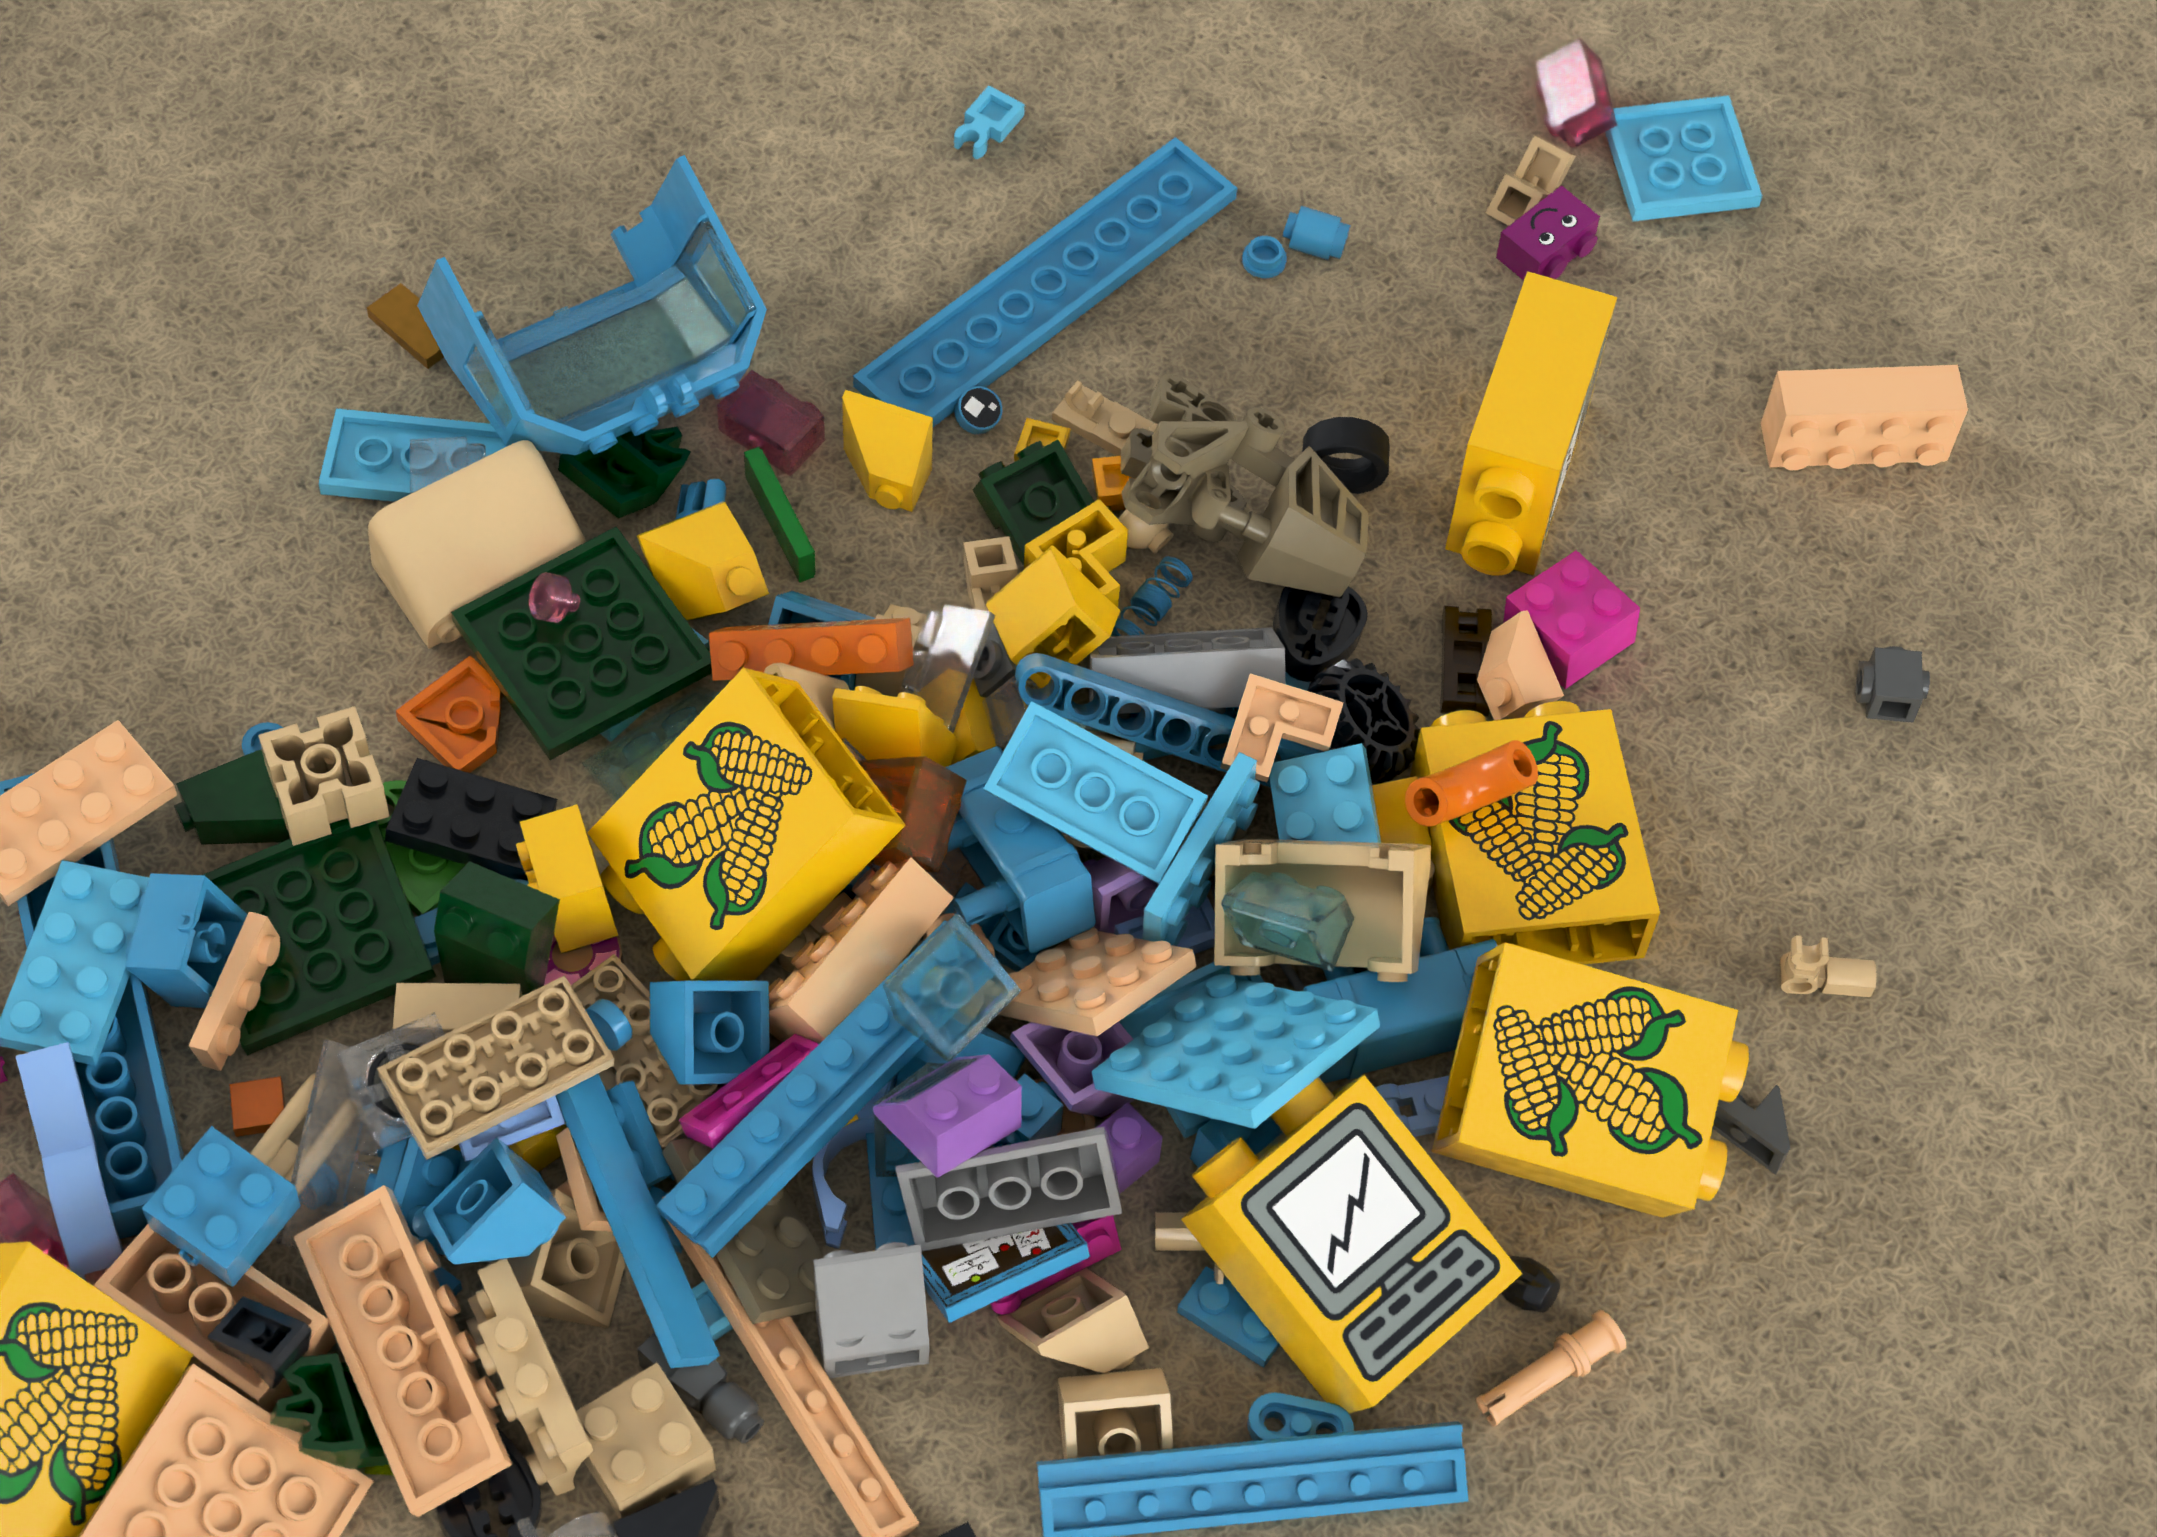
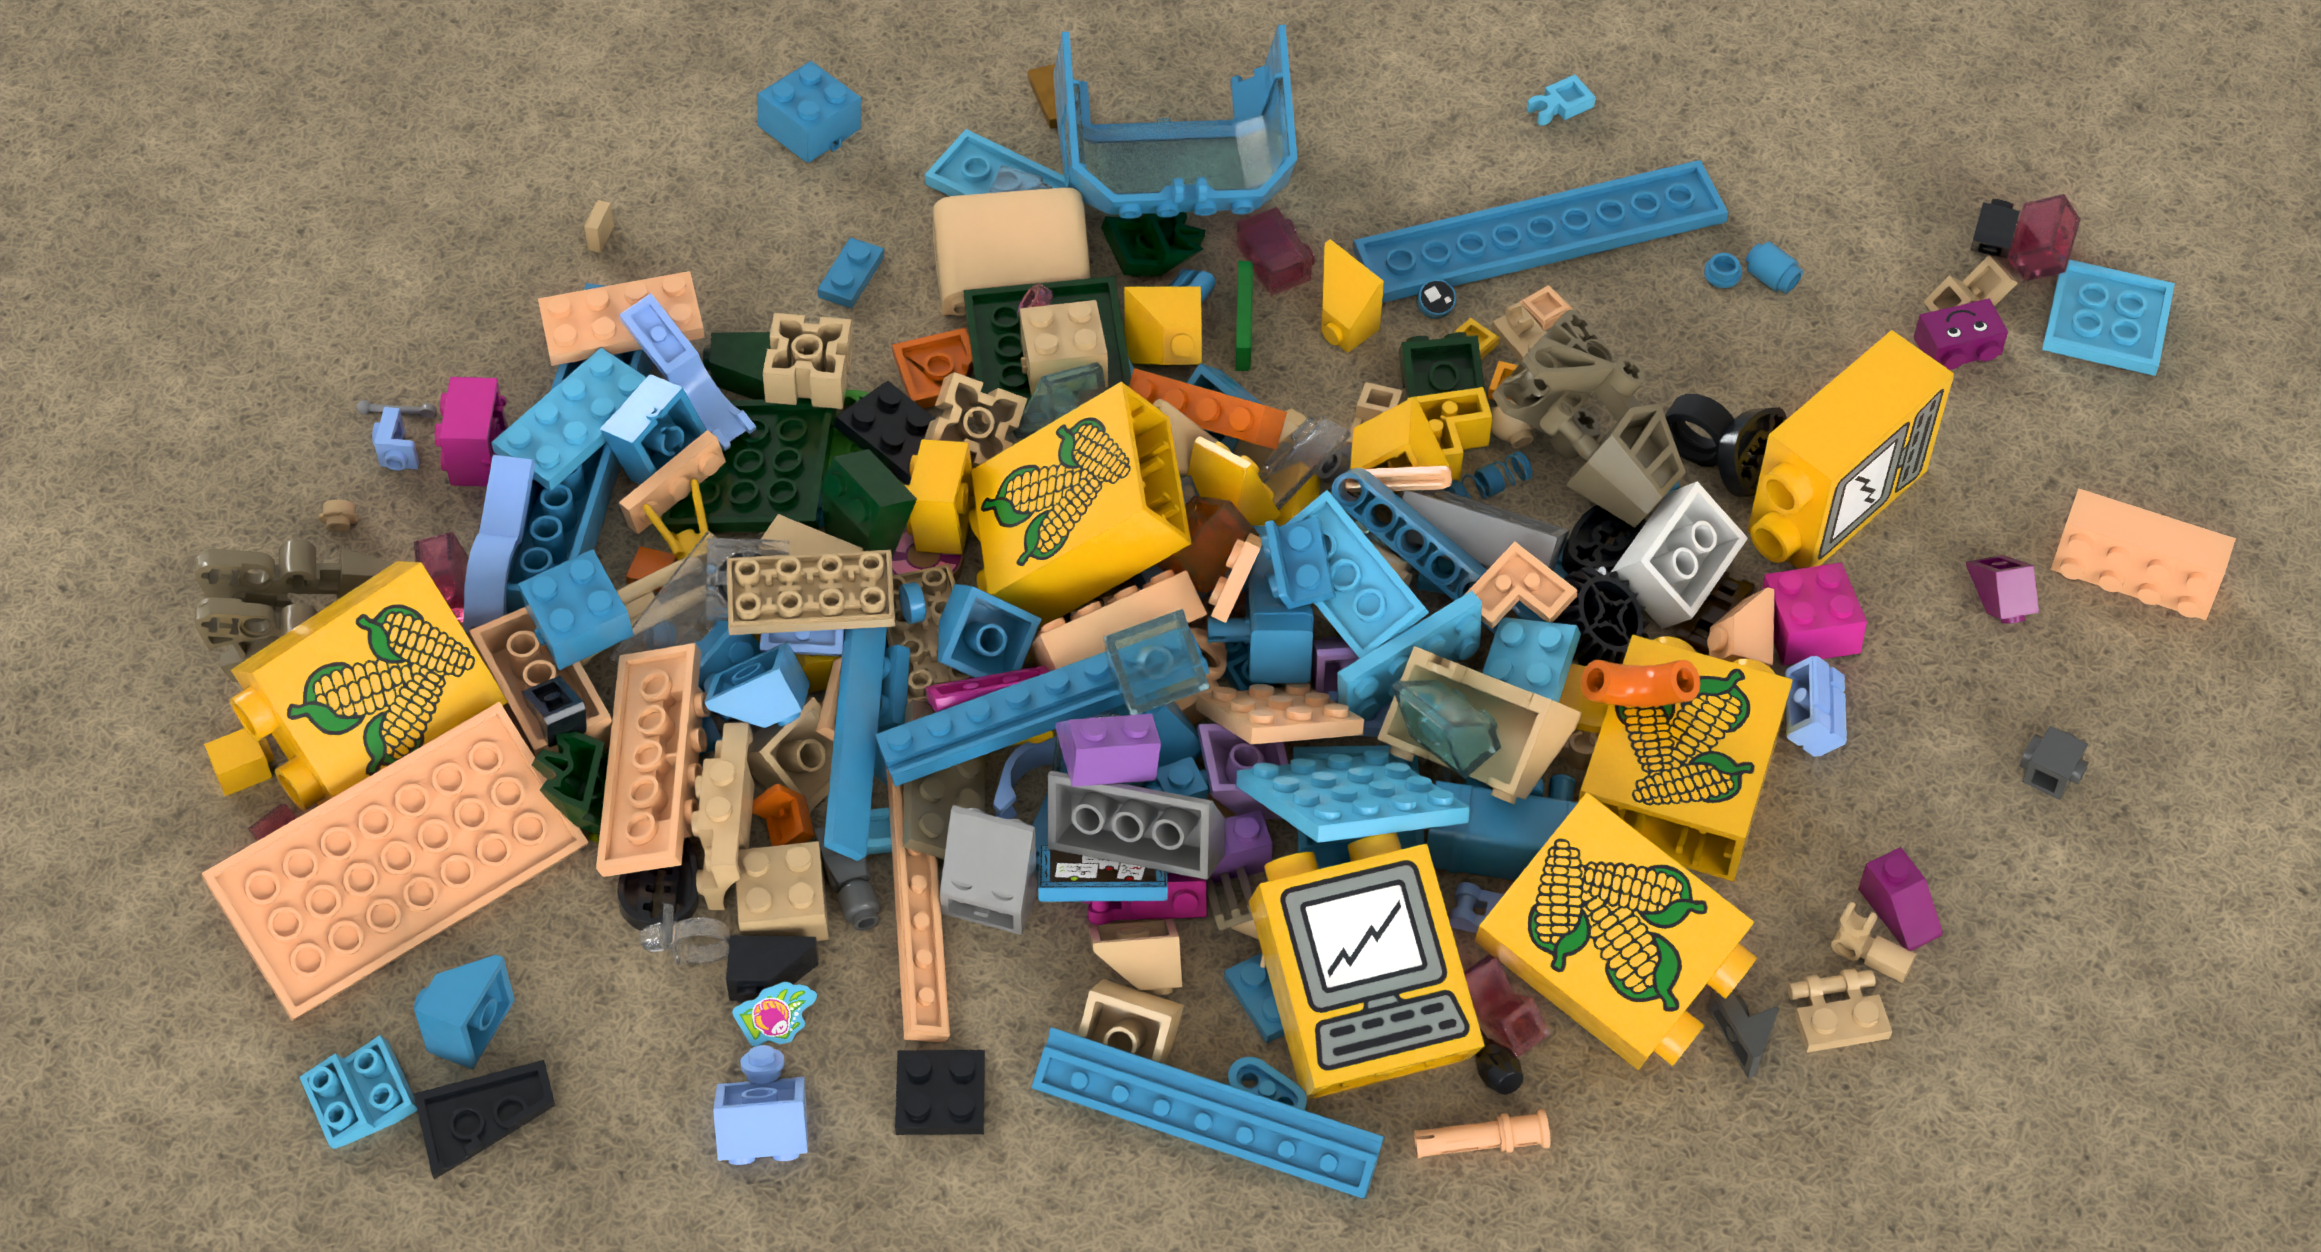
camera: 30 degrees right, 5 degrees down
(137, 457) = (809, 111): none -> dark azure brick
(177, 845) = (683, 366): none -> light blue piece
(291, 1061) = (686, 540): none -> yellow plant
(293, 638) = (851, 272): none -> dark azure plate
(545, 751) = (994, 414): none -> tan brick
(592, 1348) = (785, 815): none -> orange bracket
(615, 640) = (1061, 339): none -> tan brick
(657, 711) = (1059, 395): none -> clear light blue slope
(976, 842) = (1228, 589): none -> light nougat plate
(1042, 797) = (1299, 562): none -> dark azure bracket
(1091, 644) = (1408, 478): none -> light nougat axle
(1100, 372) = (1545, 307): none -> light nougat tile
(1129, 1202) = (1227, 886): none -> dark tan tile
(1407, 610) = (1680, 555): none -> white brick
(1413, 456) = (1744, 435): none -> black piece
(1508, 1214) = (1506, 1014): none -> clear pink slope
(1525, 102) = (1995, 228): none -> black slope
(1641, 728) = (1816, 707): none -> light blue brick
(1742, 506) = (2005, 587): none -> magenta slope
(1826, 905) = (1901, 899): none -> magenta slope
(1837, 1068) = (1839, 1022): none -> tan plate

